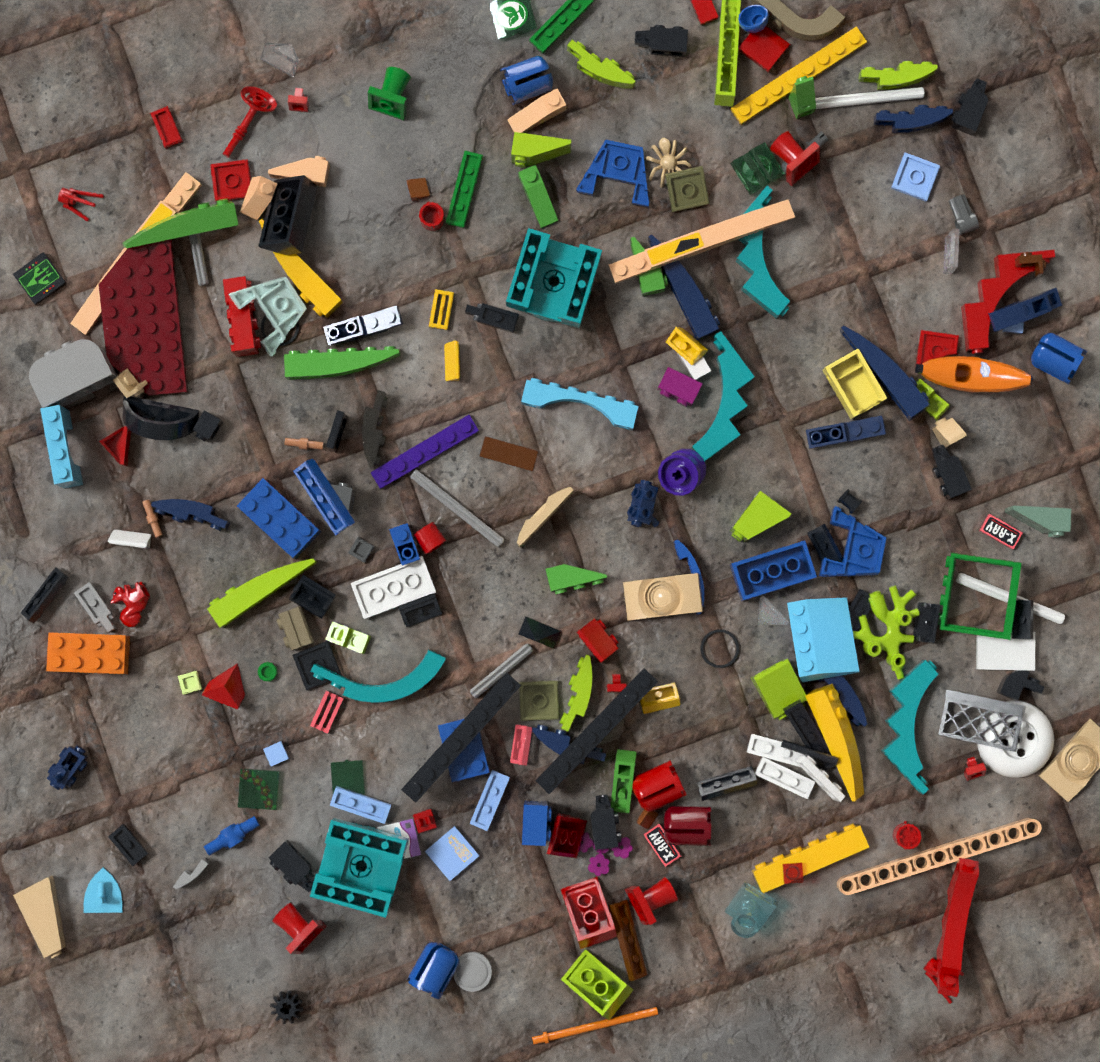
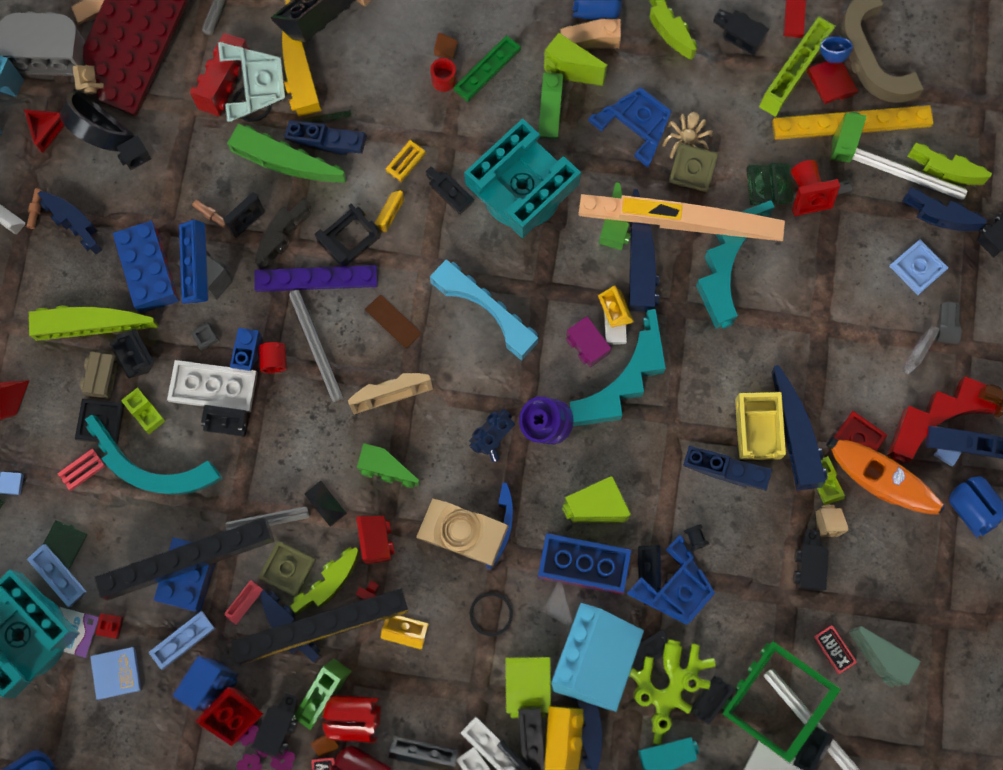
camera: 30 degrees right, 10 degrees down
(267, 671) = (50, 402): green tile -> none
(347, 312) = (332, 118): none -> dark green piece
(426, 417) = (335, 248): none -> black window

